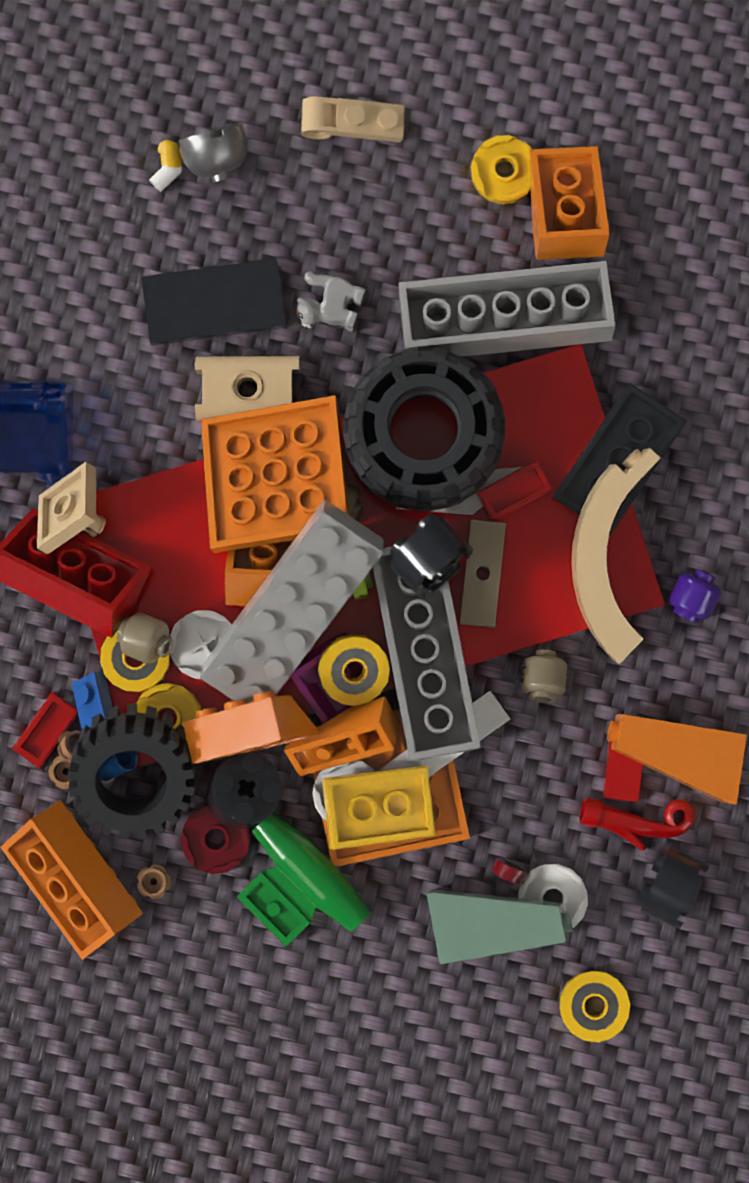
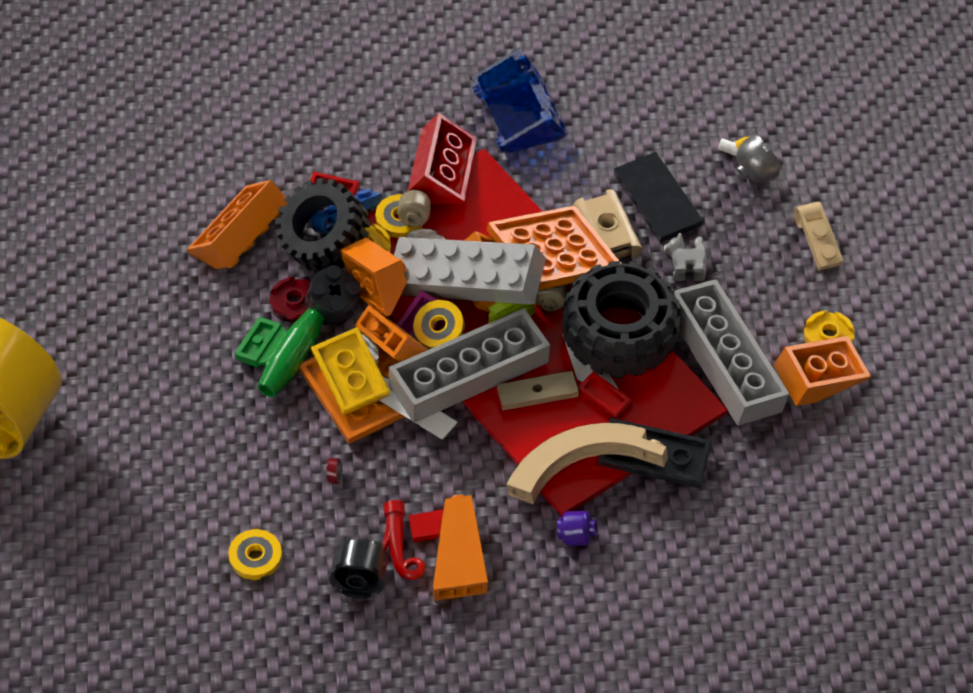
camera: 65 degrees right, 30 degrees down
(68, 509) = (482, 148): tan tile -> none
(144, 881) = (252, 266): medium nougat plate -> none
(429, 555) = (532, 329): black brick -> none
(490, 925) = (290, 466): sand green slope -> none
(544, 676) = (480, 452): dark tan head -> none
(560, 878) = (323, 520): white tile -> none

